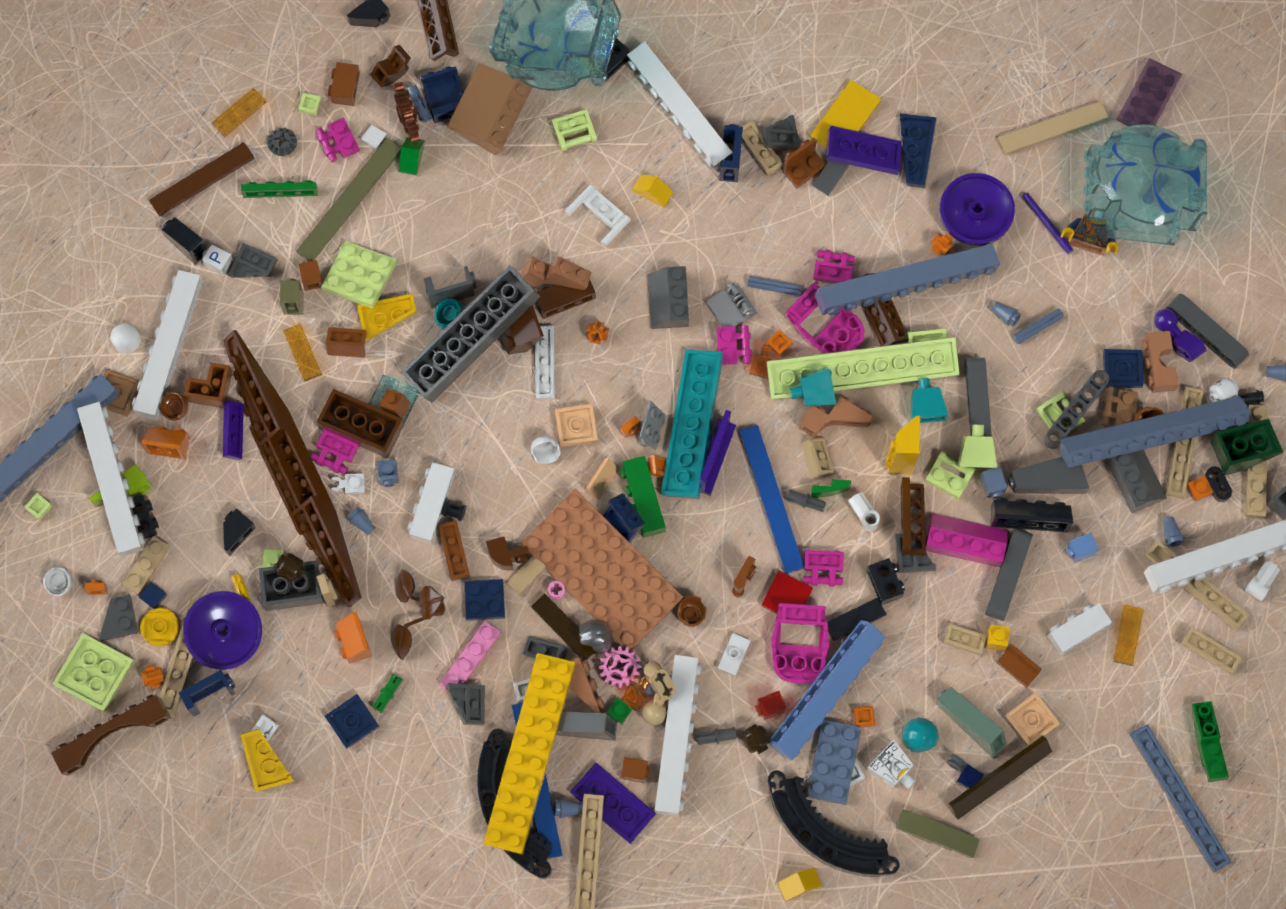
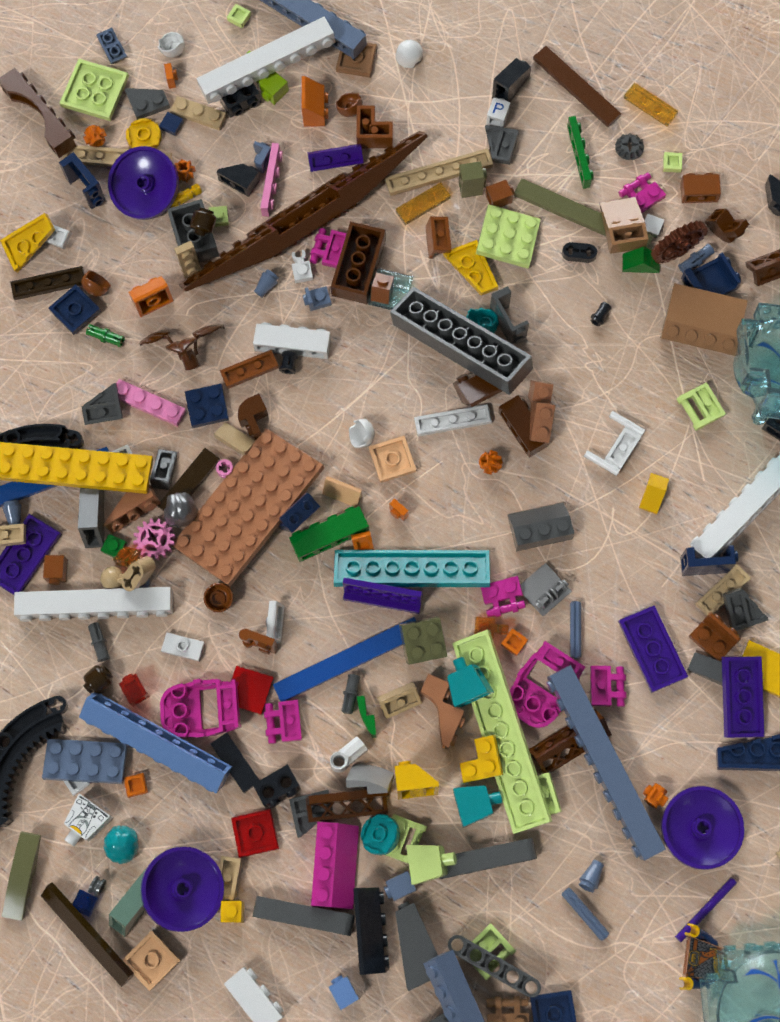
camera: 85 degrees right, 0 degrees up
(42, 649) = (111, 45): none -> sand blue slope
(167, 344) = (409, 88): white brick -> none
(215, 582) = (185, 170): none -> orange gear
(218, 504) = (262, 158): none -> sand blue bracket
(252, 501) = (270, 186): none -> bright pink plate
(271, 330) = (434, 172): none -> tan plate
(313, 747) = (47, 283): none -> dark brown tile
(328, 695) = (94, 284): none -> dark orange hair
(372, 161) = (623, 225): none -> medium nougat slope
(393, 212) = (579, 252): none -> black beam
(463, 205) = (599, 316): none -> black pin
(652, 426) = (401, 528): light grey hinge -> none
(724, 562) = (275, 621): none -> white plate
(766, 423) = (423, 640): none -> olive brick
(805, 220) = (652, 649): none -> dark purple plate
(891, 490) = (375, 778): none -> light grey slope
(893, 385) = (486, 765): none -> yellow plate
(925, 609) = (255, 833): none -> red tile
(944, 493) = (380, 834): none -> teal tile
(973, 676) = (182, 889): none -> dark purple dish
(1019, 665) = (206, 939): dark orange panel -> none

